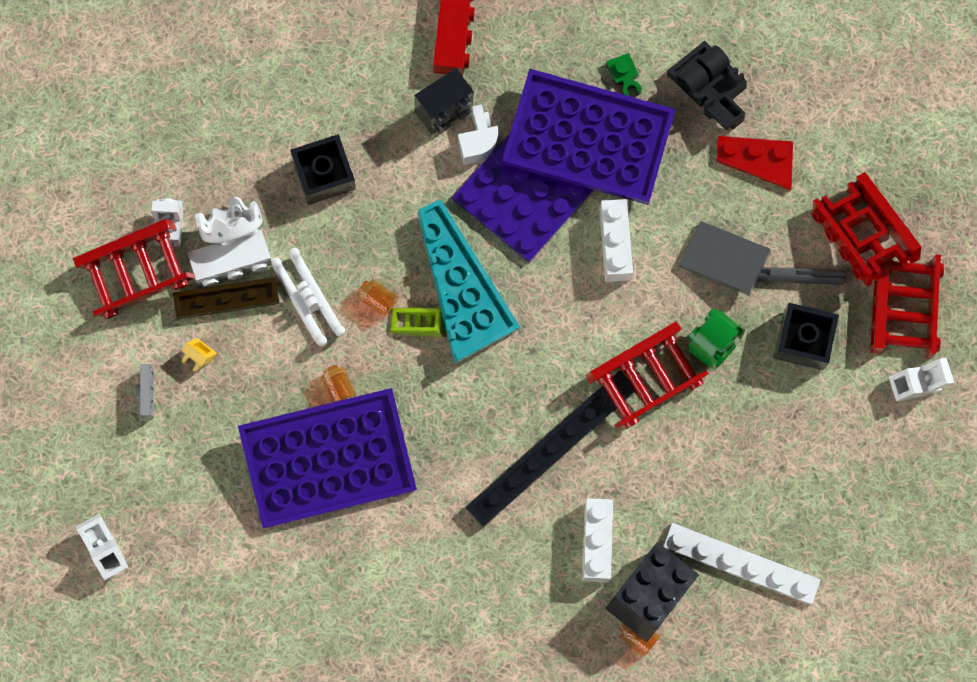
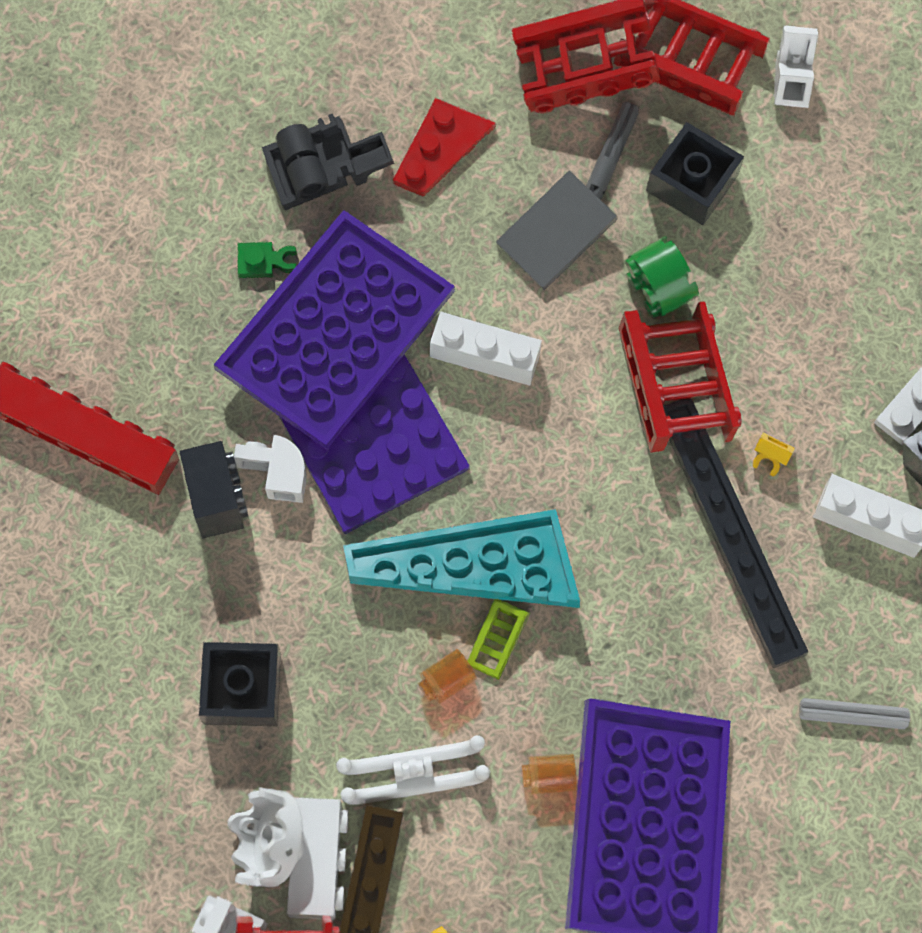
camera: 65 degrees left, 5 degrees down
(454, 572) = (854, 713): none -> light grey axle
(620, 458) = (774, 450): none -> yellow tile

